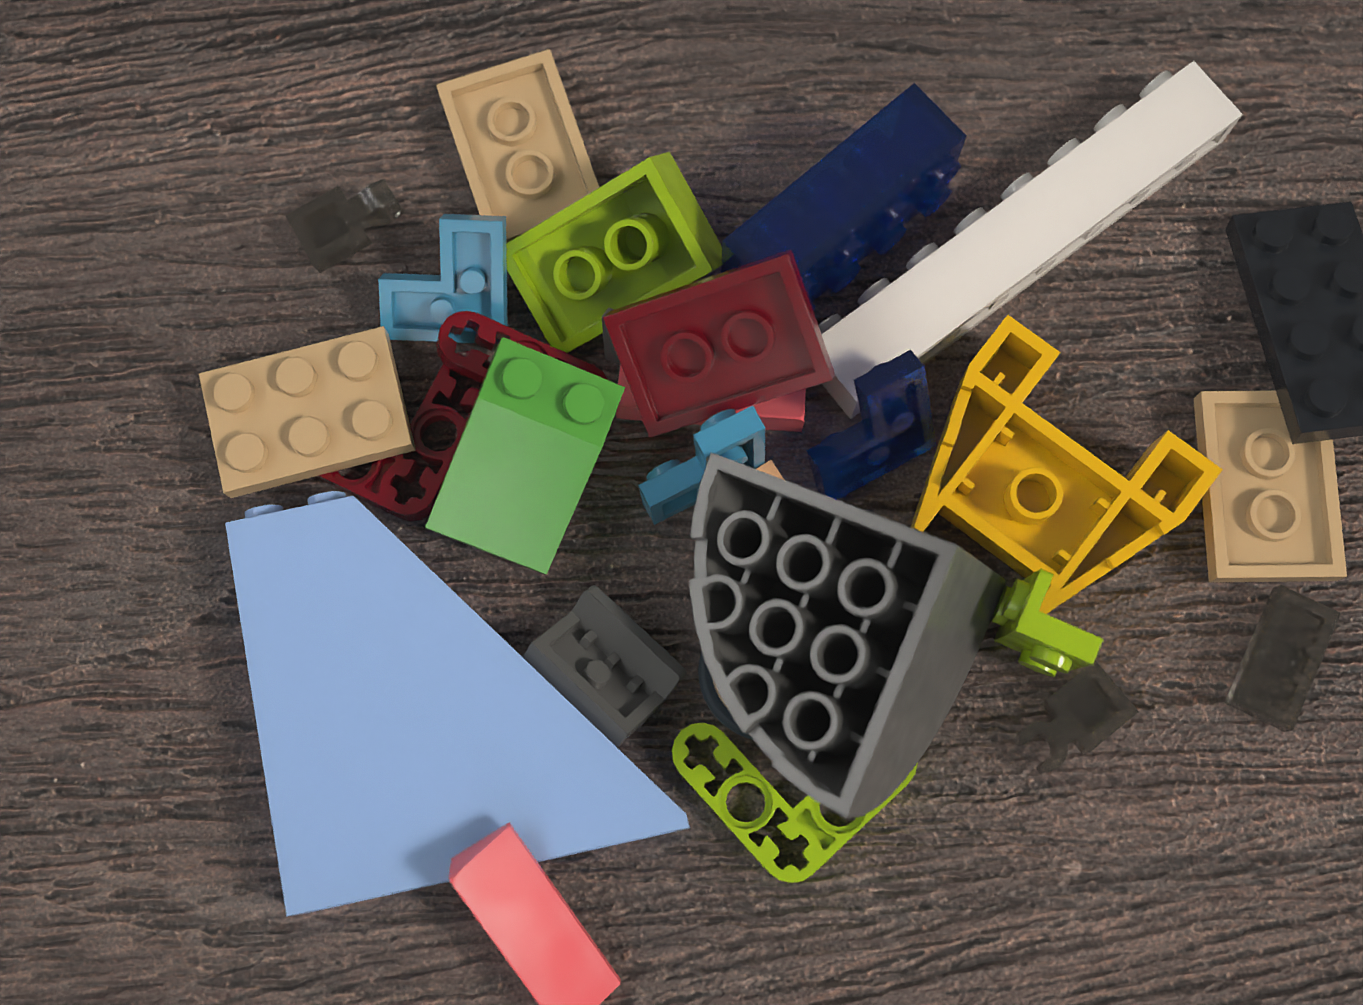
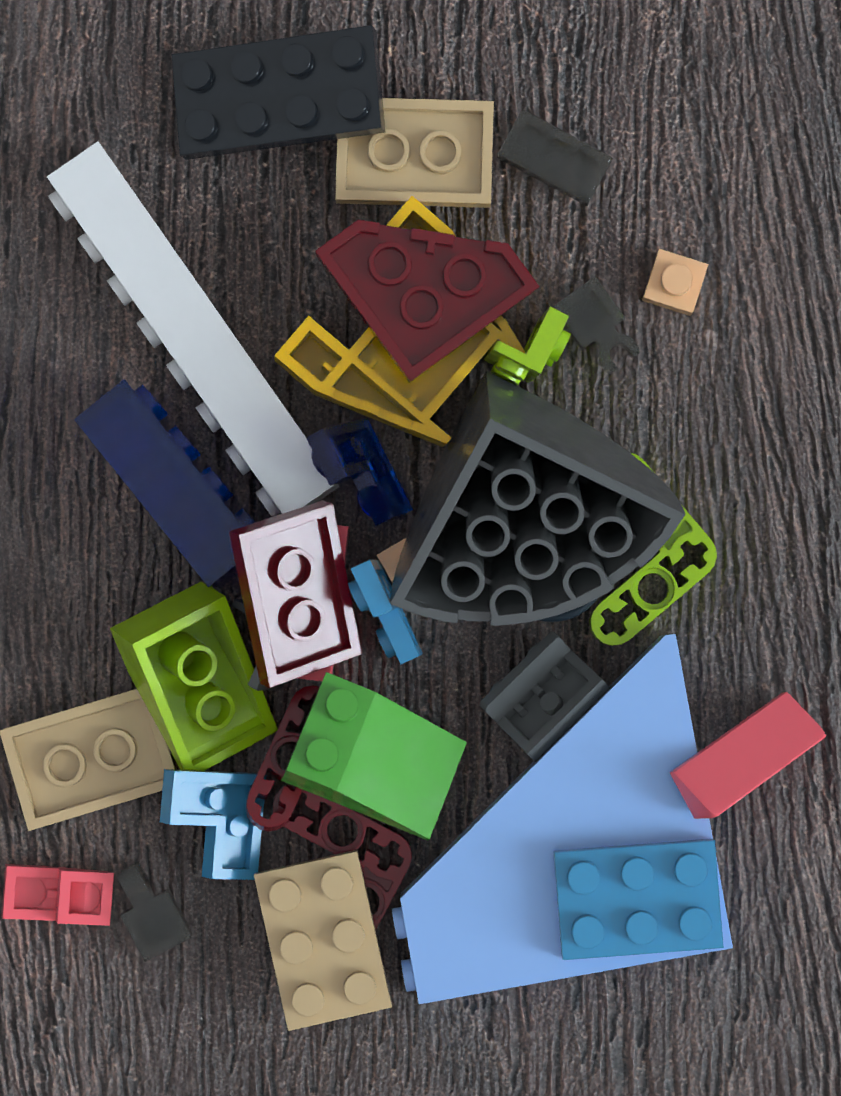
camera: 90 degrees left, 10 degrees up
(348, 789) = (638, 899): none -> dark azure plate
(365, 124) = (57, 894): none -> coral slope
(1110, 486) = (424, 287): none -> dark red plate
(1139, 818) = (675, 282): none -> light nougat plate

